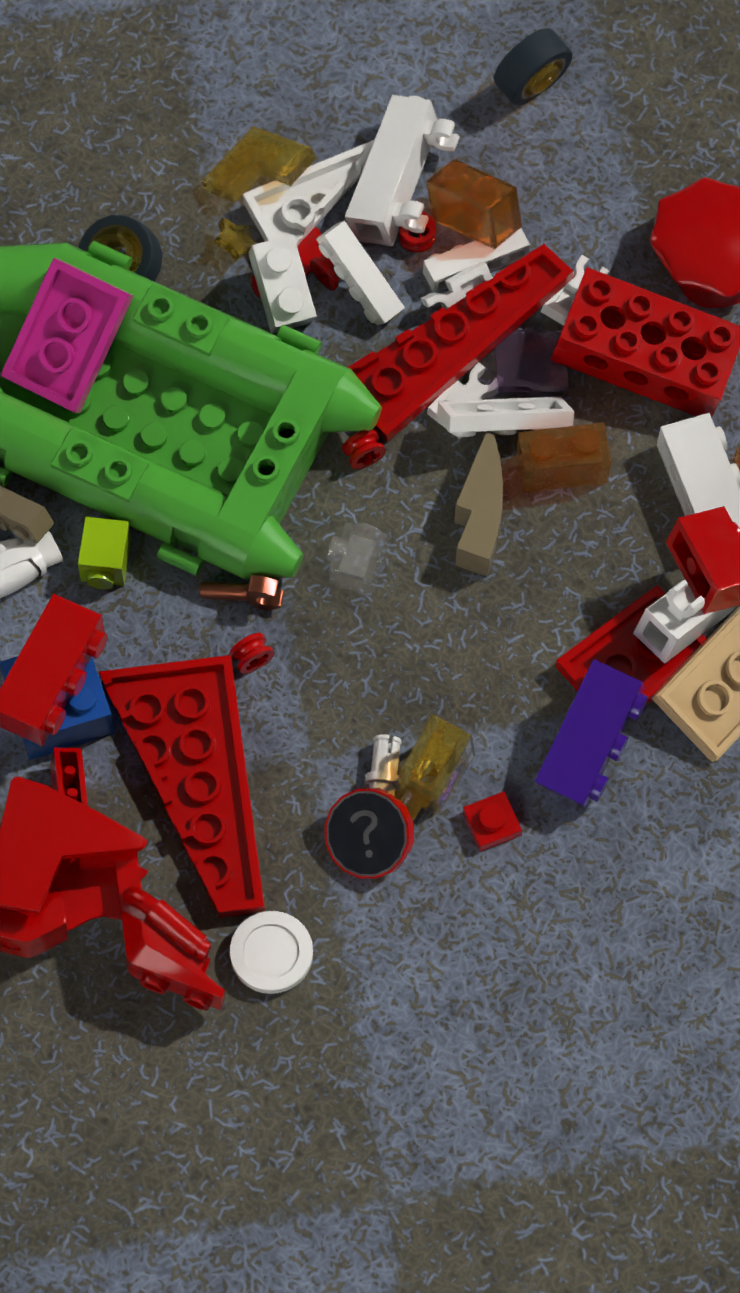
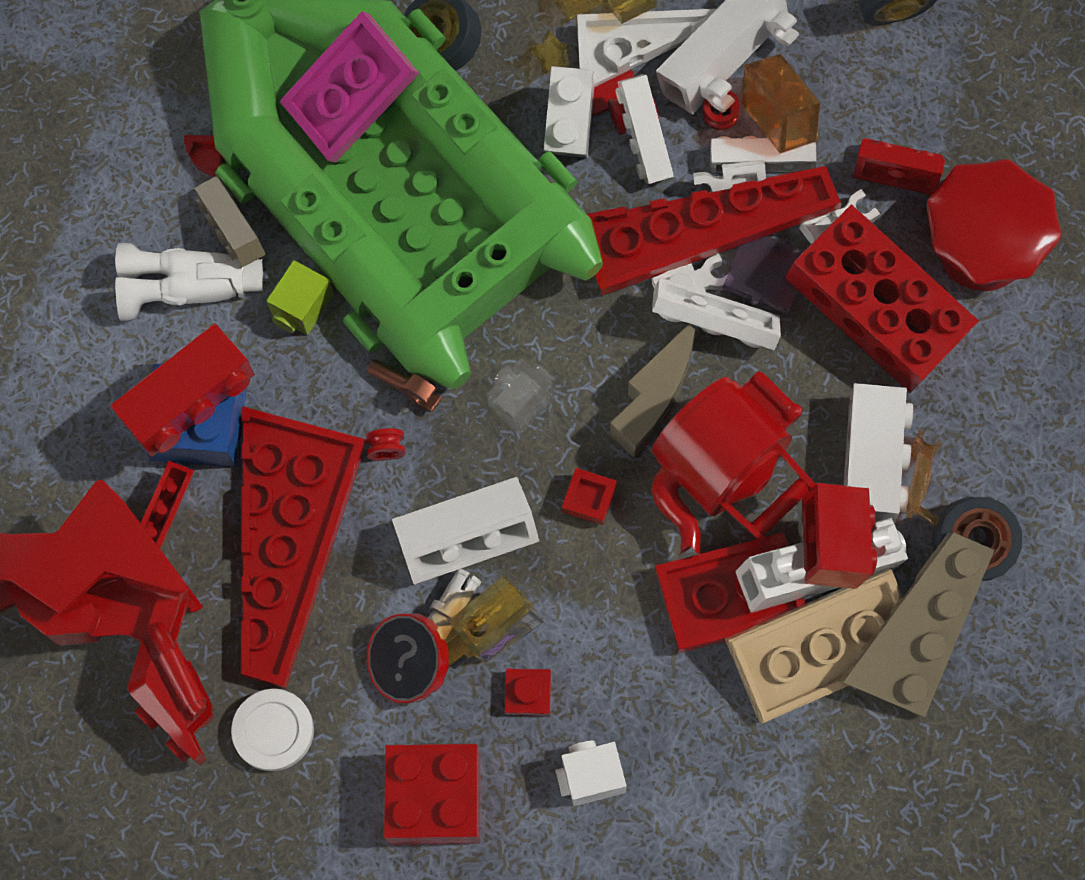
camera: 30 degrees right, 5 degrees up
(363, 449) = (574, 294): red bush -> none
(367, 698) = (465, 530): none -> white brick
(452, 943) = (432, 794): none -> red brick
(465, 624) = (589, 496): none -> red plate
(563, 457) = (743, 361): clear orange brick -> none
(577, 532) = (725, 452): none -> red piece
(586, 865) = (591, 773): none -> white brick
(592, 734) = (650, 652): dark purple brick -> none
(607, 221) = (899, 166): none -> red bracket

